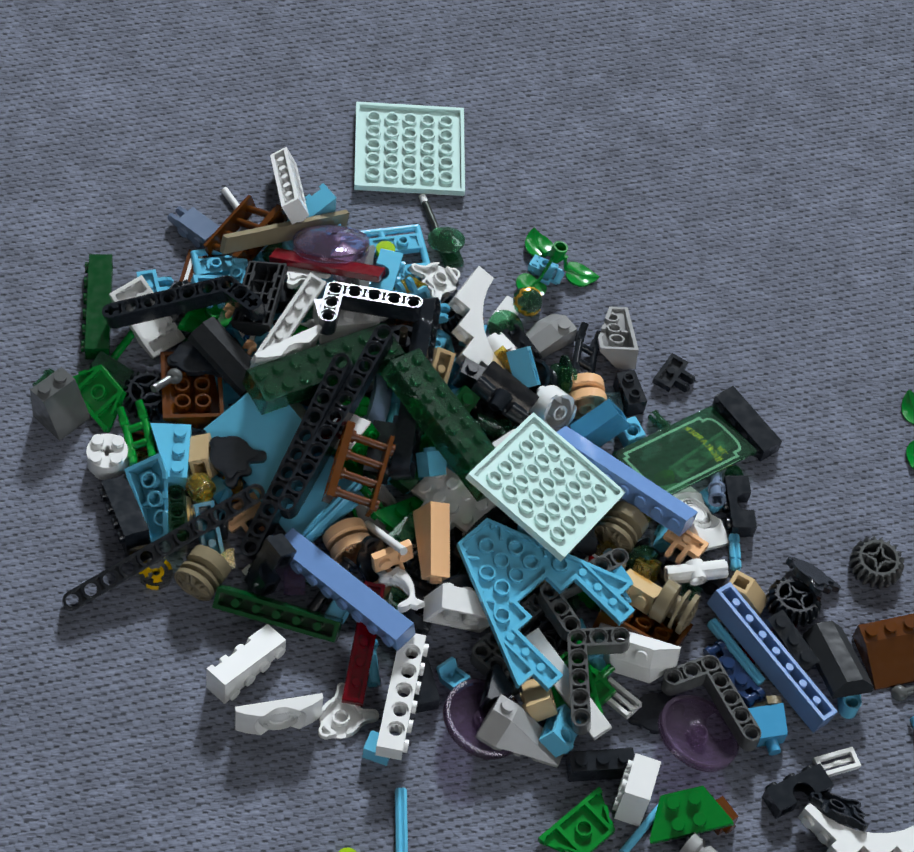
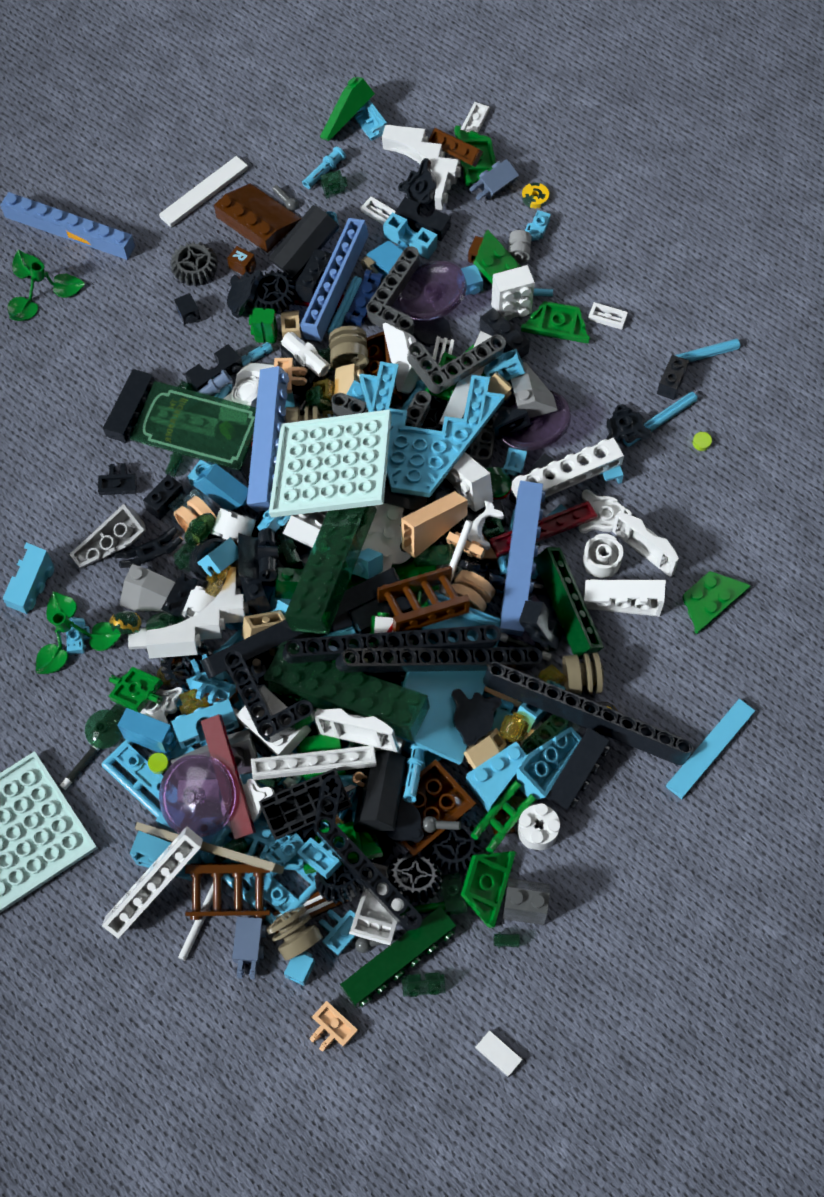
camera: 115 degrees left, 10 degrees up
(55, 633) = (710, 748): none -> medium azure tile
(70, 304) = (433, 984): none -> clear green hinge
(89, 242) = (334, 1024): none -> light nougat hinge
(149, 245) = (300, 968): none -> medium azure brick
(151, 353) = (425, 873): none -> black gear
(174, 248) = (294, 932): none -> dark tan wheel
(185, 739) = (711, 597): none -> green wing
(220, 385) = (415, 765): none -> medium azure pin
(298, 673) = (602, 556): none -> white brick
(415, 797) = (626, 425): none -> black tile
(416, 244) = (147, 732): none -> dark azure brick
(442, 641) = (500, 482): none -> dark green helmet
(456, 271) = (135, 689): none -> green plate
(621, 264) = (30, 579): none -> medium azure wedge
(688, 778) = (473, 279): none -> medium azure brick
(758, 563) = (263, 325): none -> green brick
(793, 757) = (398, 231): none -> medium azure arch
(824, 525) = (187, 309): none -> black brick
(852, 601) = (241, 261): none -> reddish brown brick
(899, 738) = (333, 183): none -> clear green brick

